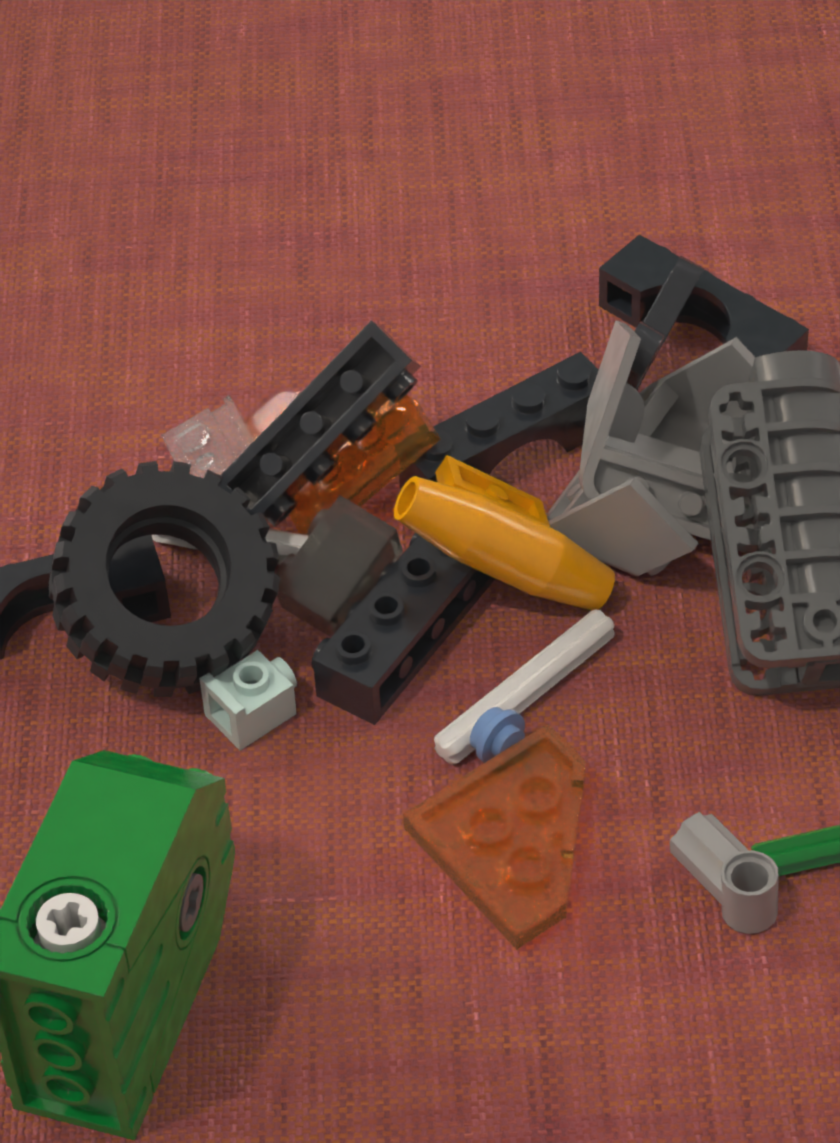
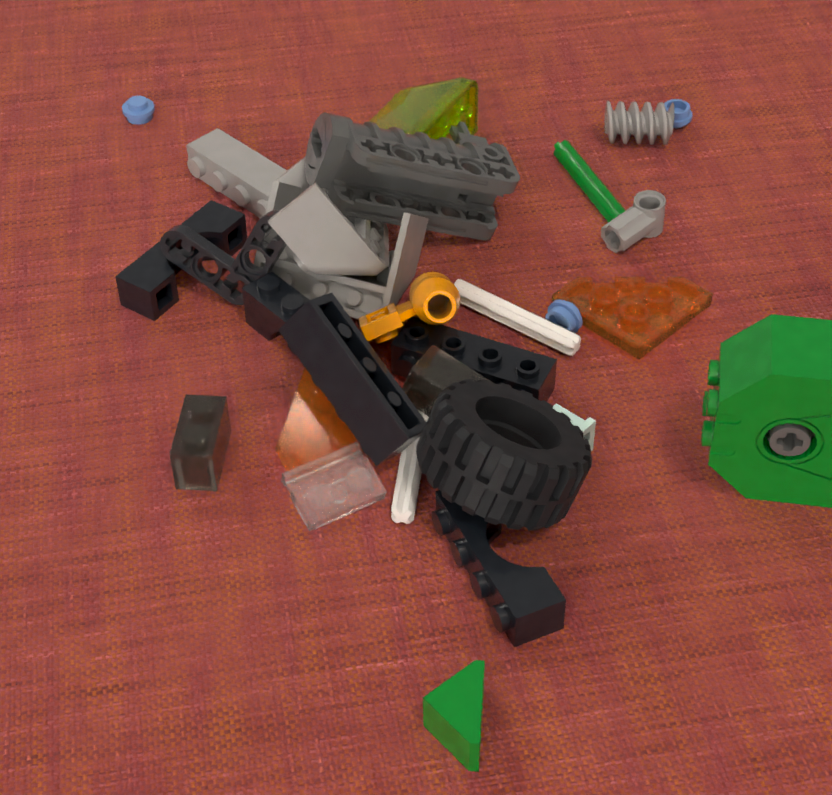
camera: 100 degrees left, 5 degrees down
(308, 326) = (200, 442): none -> clear smoke brick

